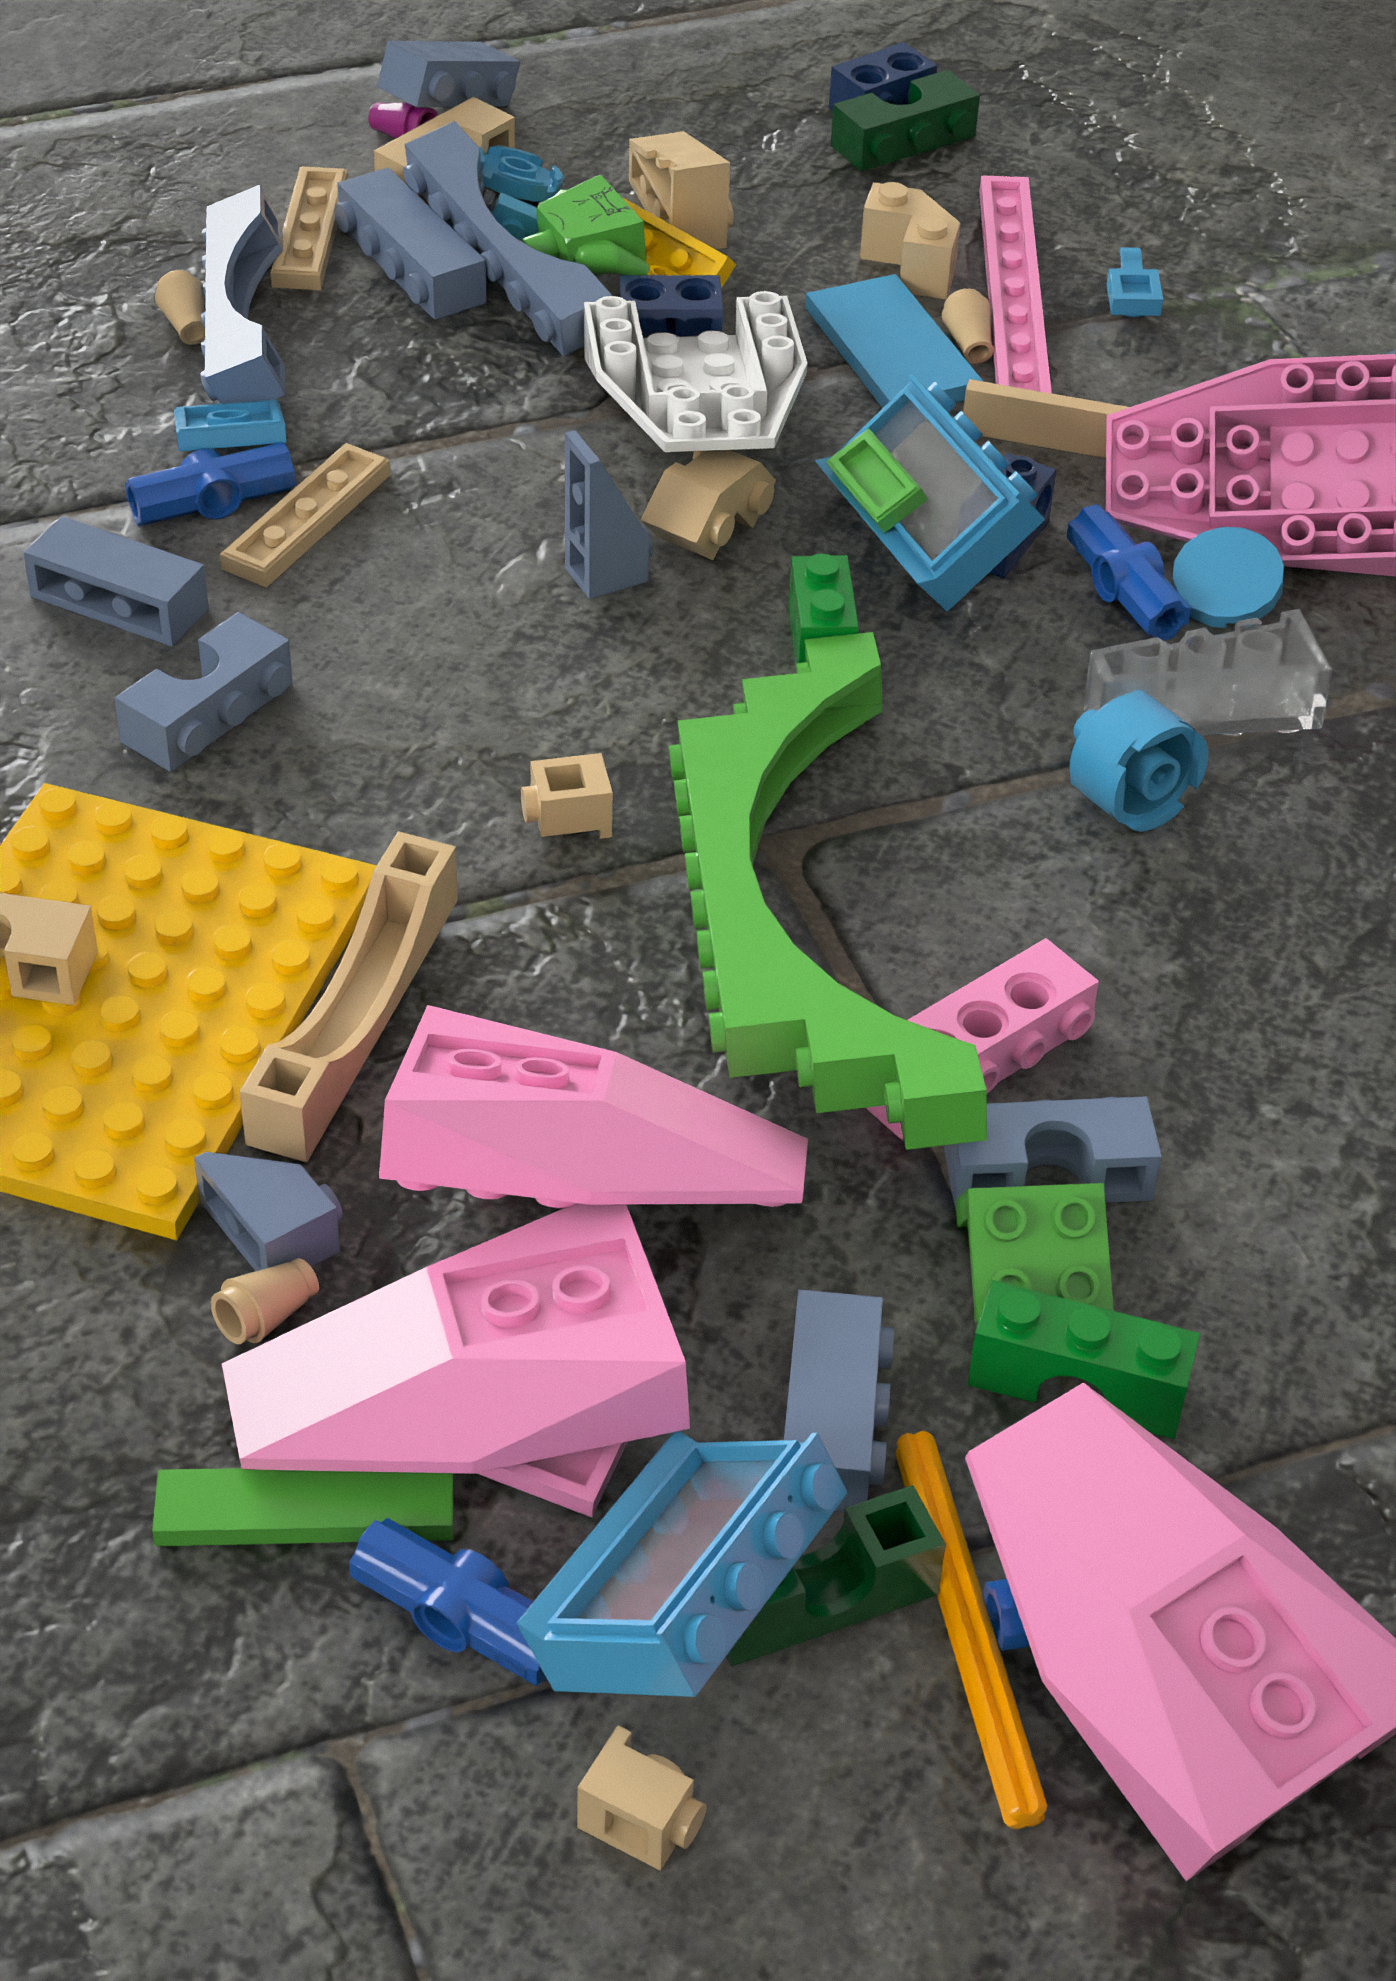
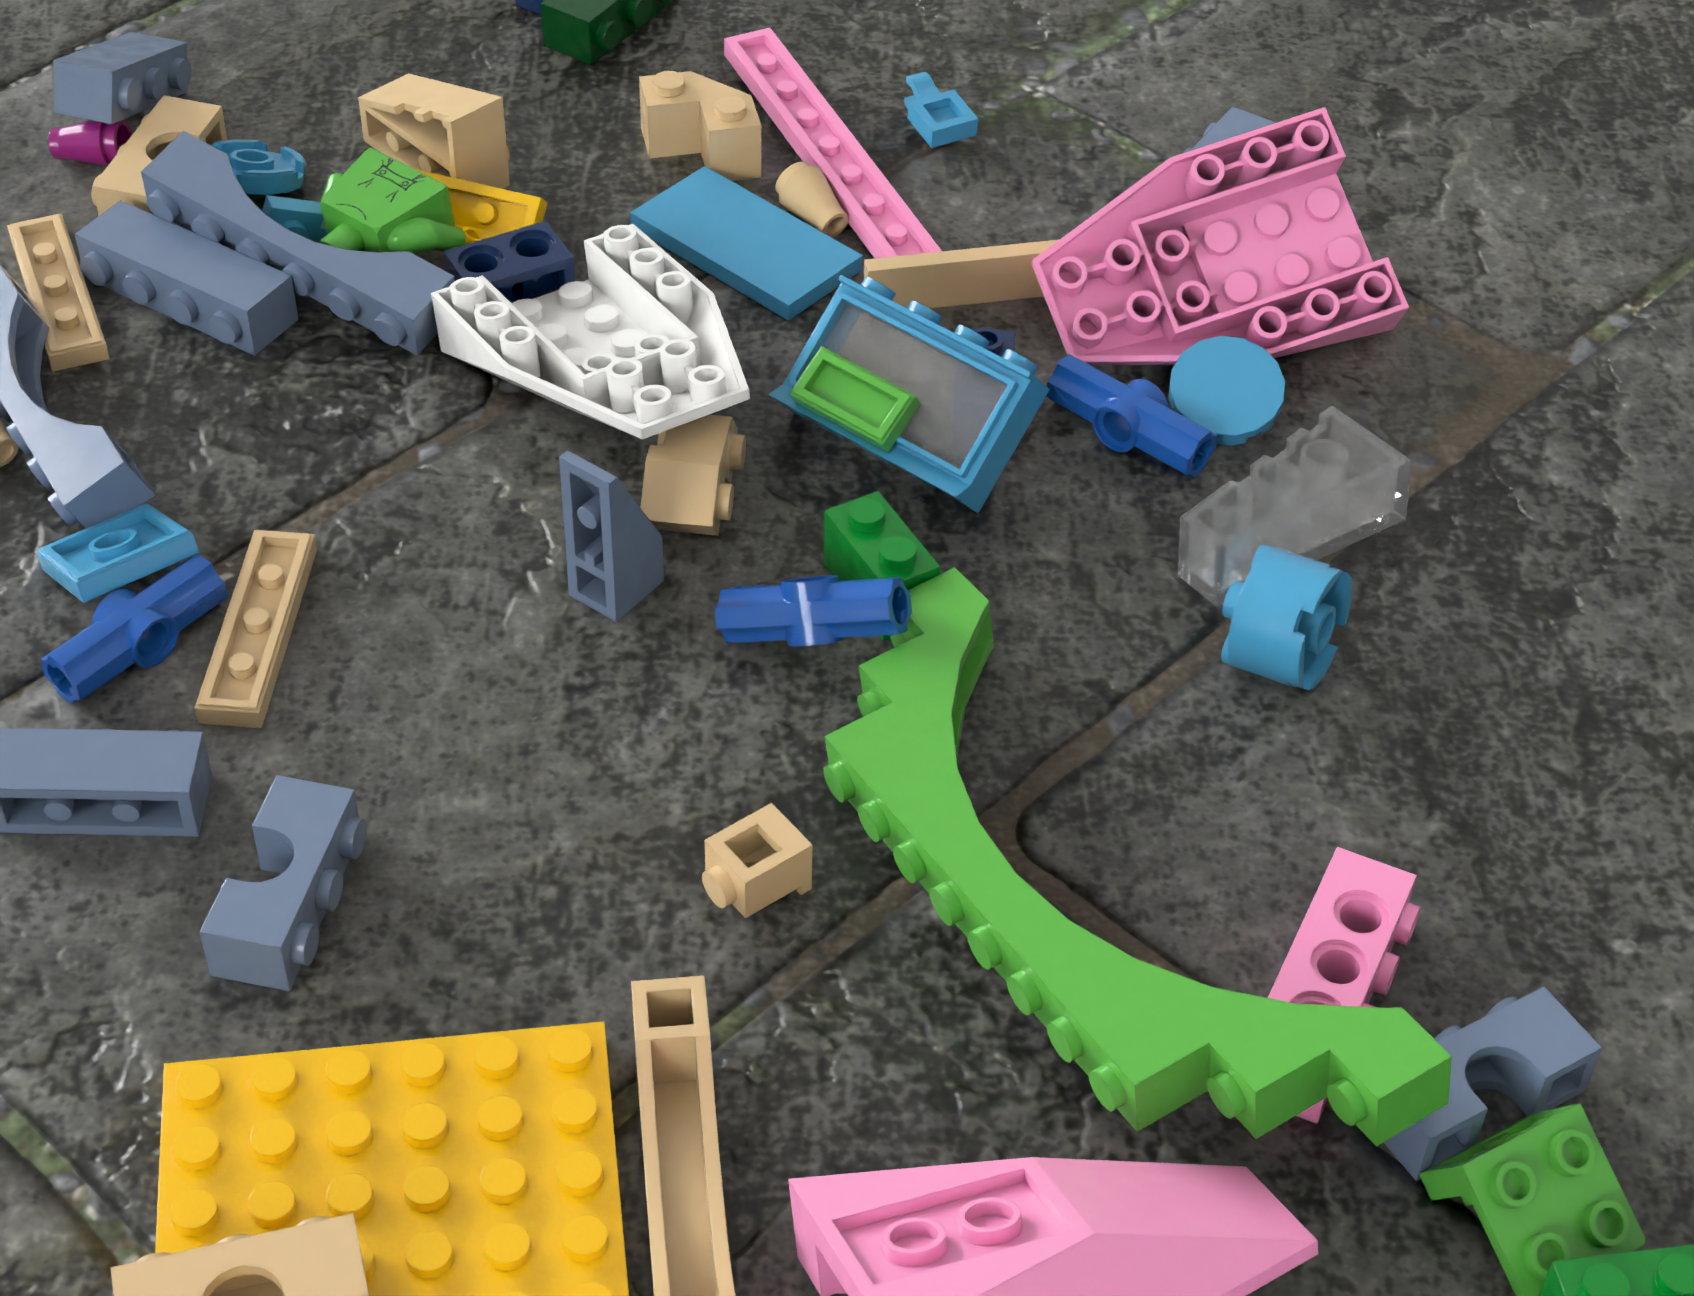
camera: 25 degrees left, 0 degrees up
(735, 628) = (813, 610): none -> blue piece

